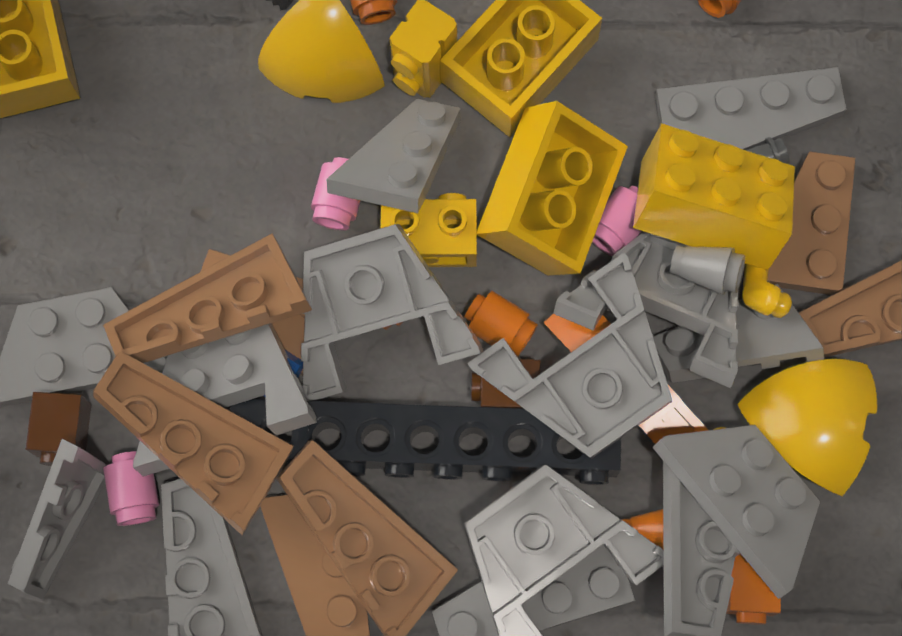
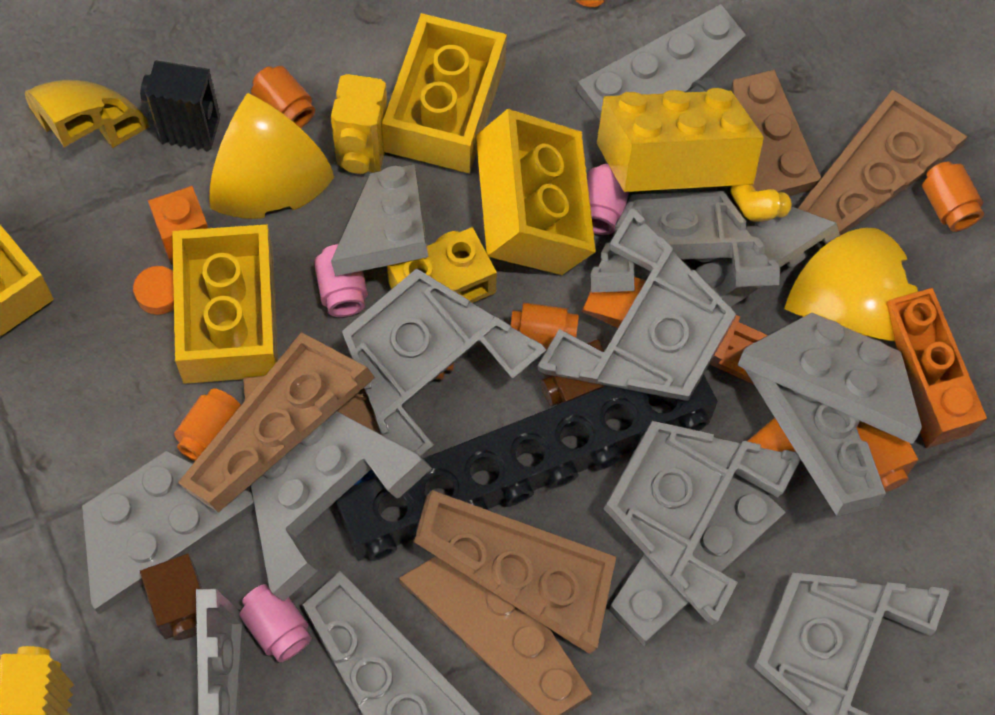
camera: 30 degrees left, 10 degrees down
(155, 276) = (204, 422): none -> orange brick
(174, 129) = (155, 290): none -> orange tile
(200, 441) = (328, 537): medium nougat wing -> none
(219, 77) = (176, 212): none -> orange brick
(221, 172) = (224, 303): none -> yellow brick
(710, 267) = (706, 197): light grey cone -> none
(844, 529) = (935, 369): none -> orange slope

